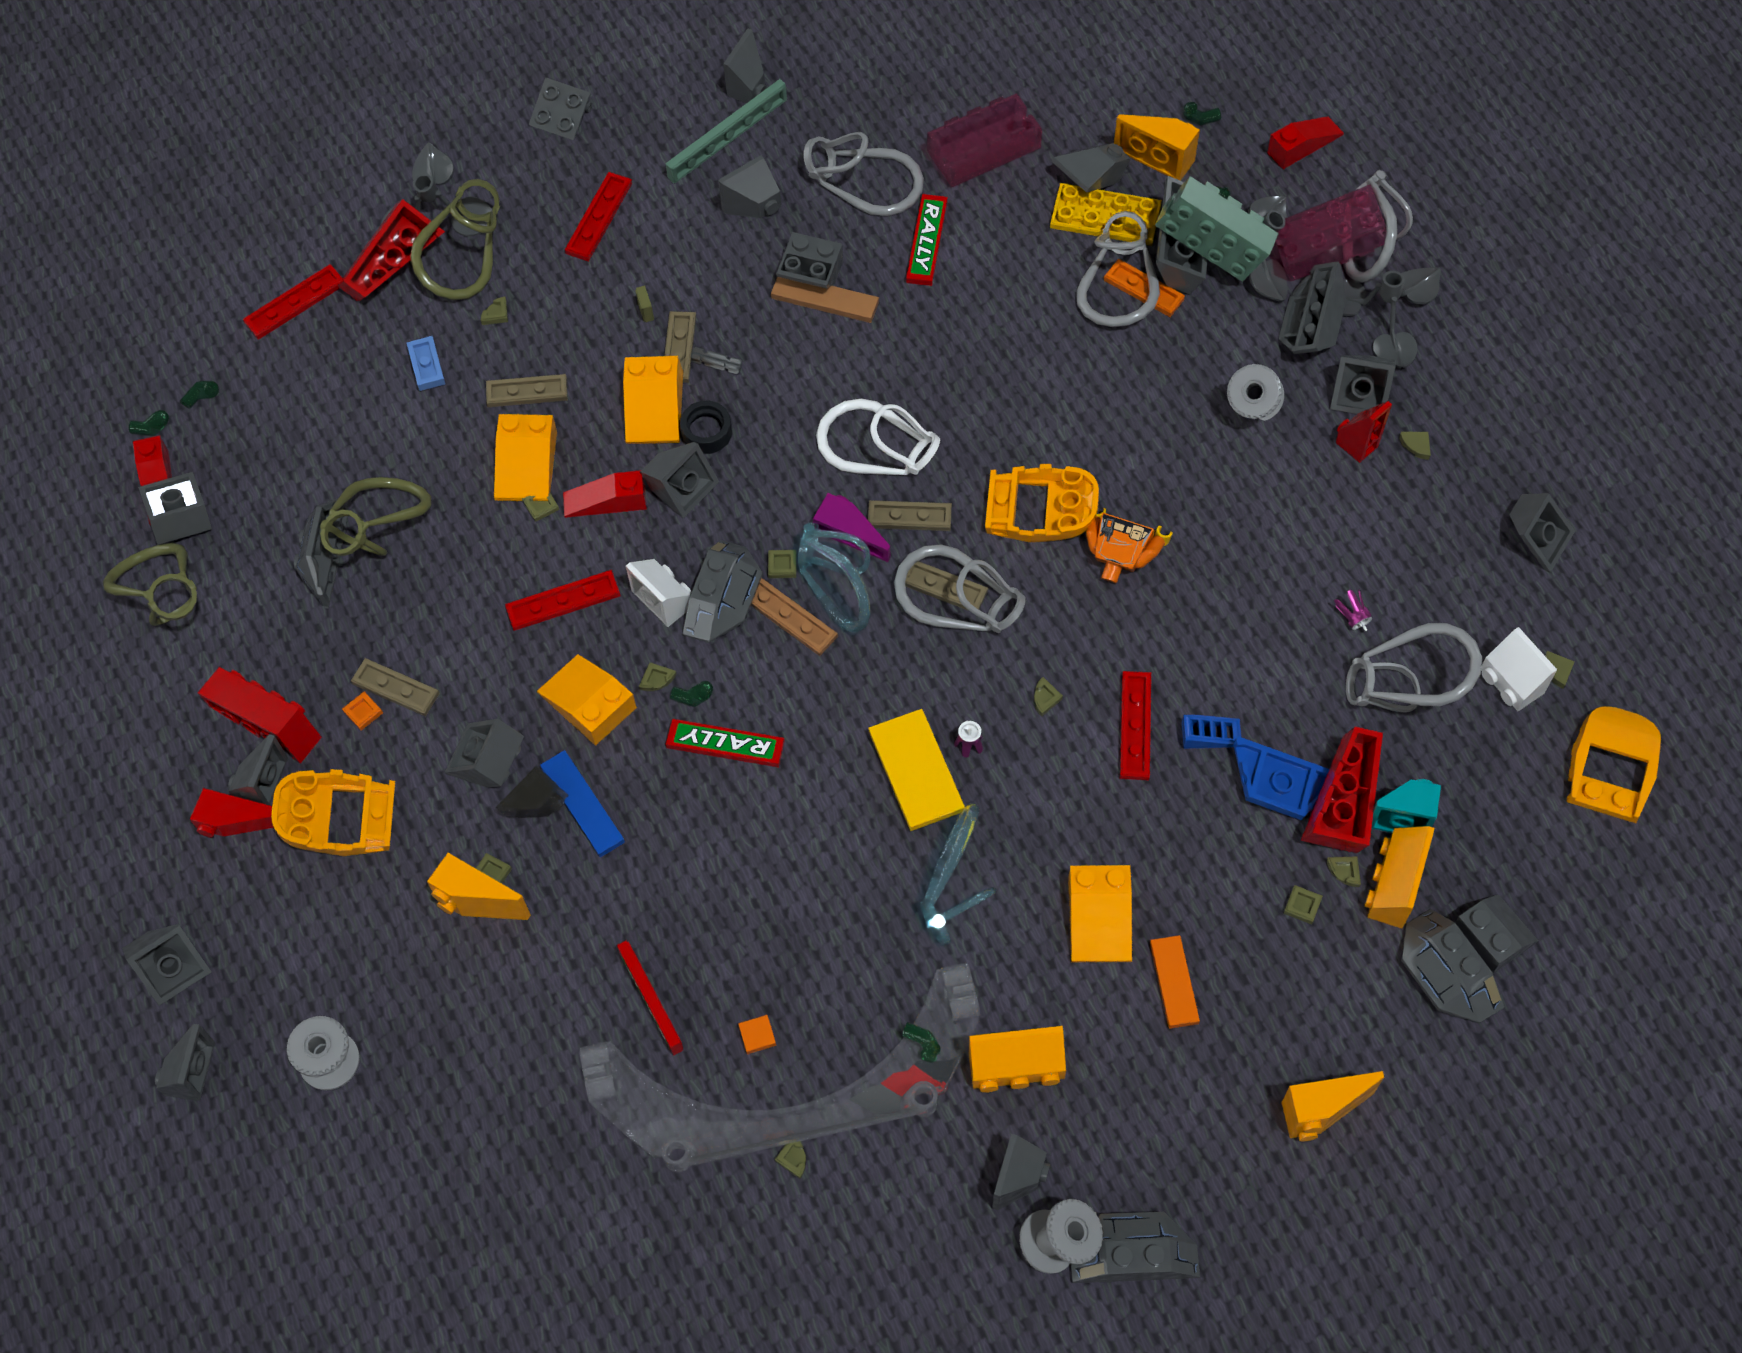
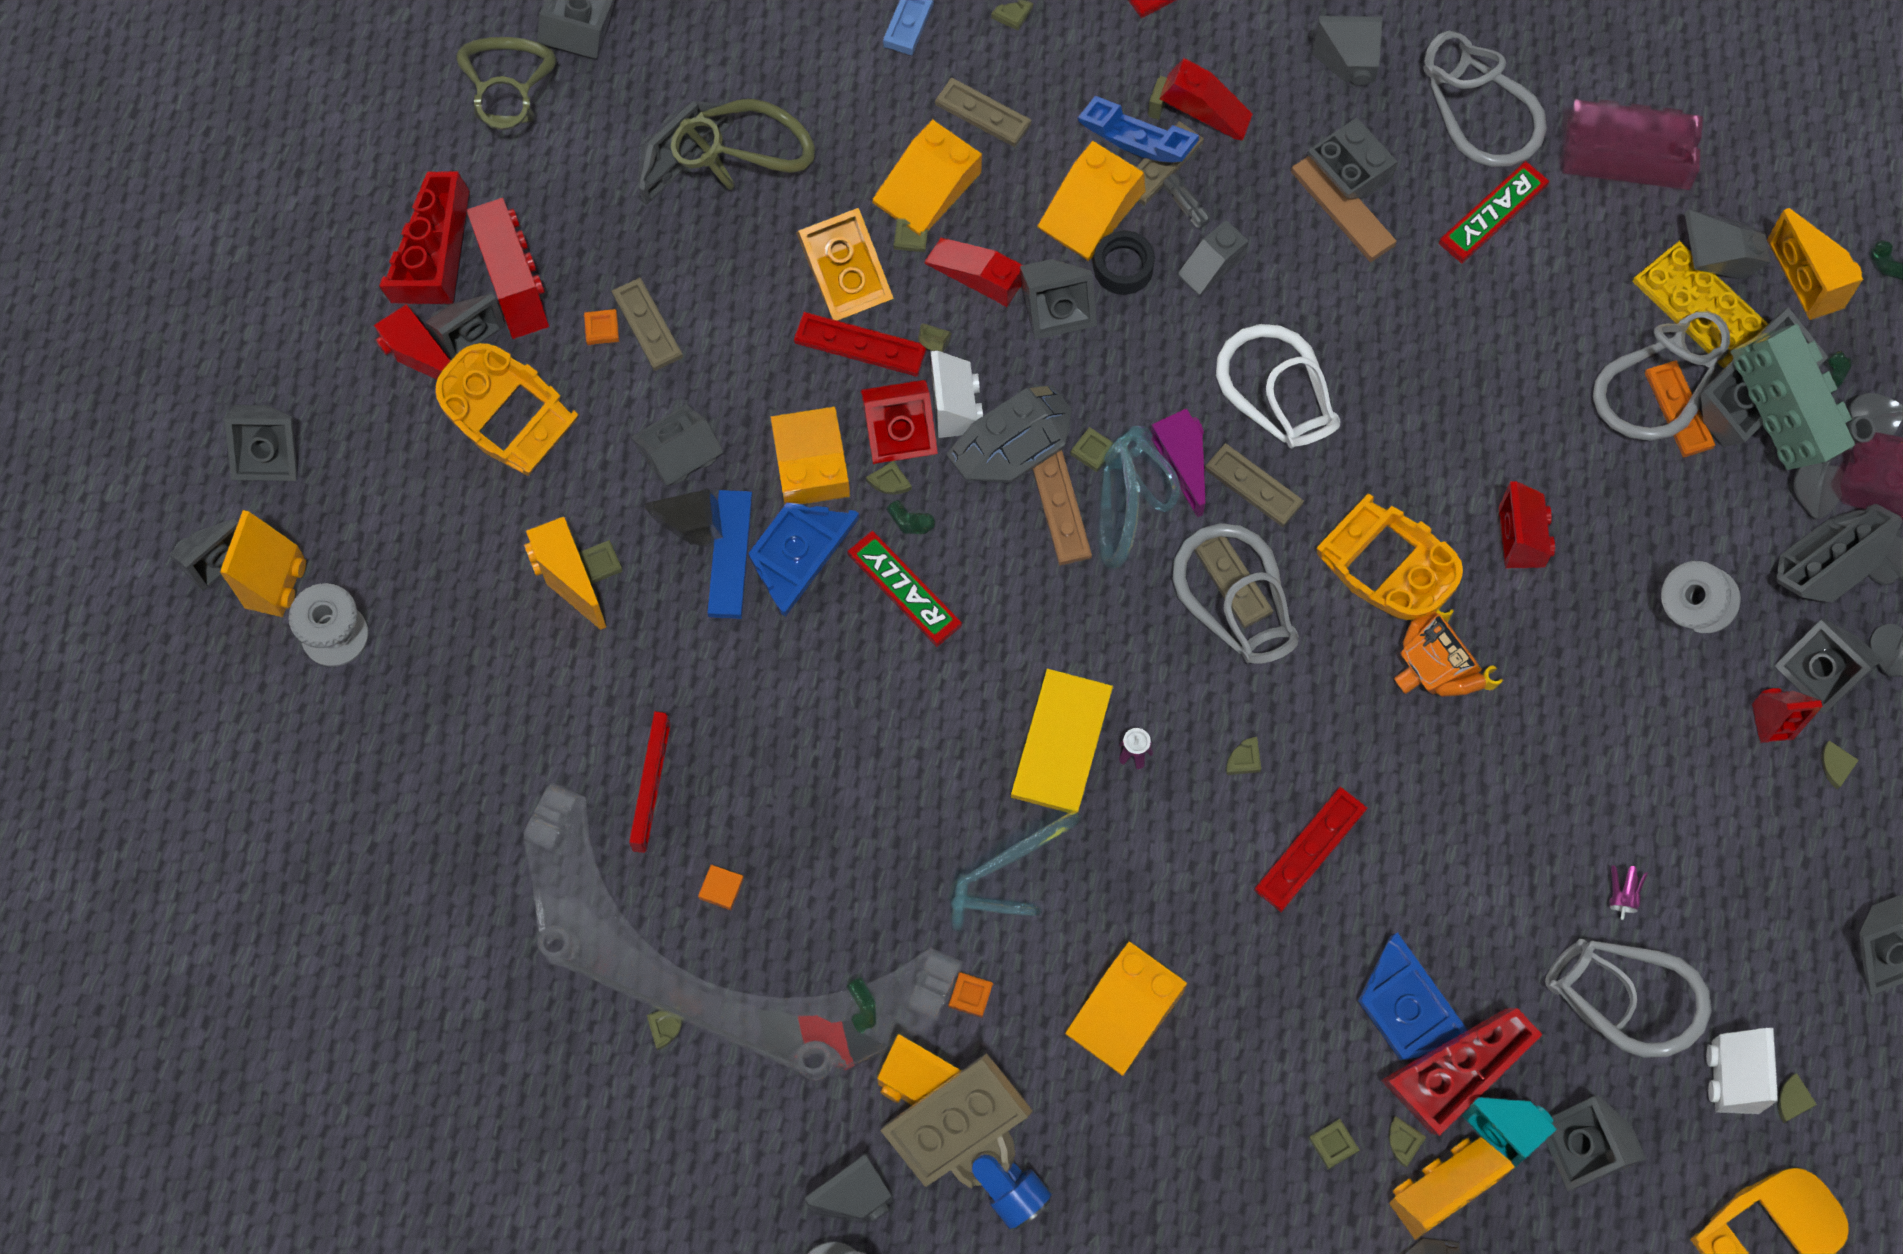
camera: 35 degrees right, 5 degrees up
(189, 739) = (431, 244): none -> red wedge
(241, 1046) = (262, 566): none -> light orange slope
(509, 552) = (845, 264): none -> light orange slope
(612, 562) = (934, 338): none -> olive tile
(629, 767) = (797, 549): none -> blue wing
(633, 632) = (899, 421): none -> red slope
(648, 339) = (1135, 135): none -> blue slope
(678, 283) = (1206, 99): none -> red slope
(766, 384) = (1214, 258): none -> dark grey slope
(988, 982) = (970, 995): none -> orange tile
(1068, 1070) = (966, 1131): none -> dark tan plate
(1109, 425) = (1525, 527): none -> red slope
(1174, 982) = (1147, 1126): orange tile -> none
(1202, 741) = (1373, 919): blue slope -> none
(1464, 783) = (1592, 1143): none -> dark grey slope

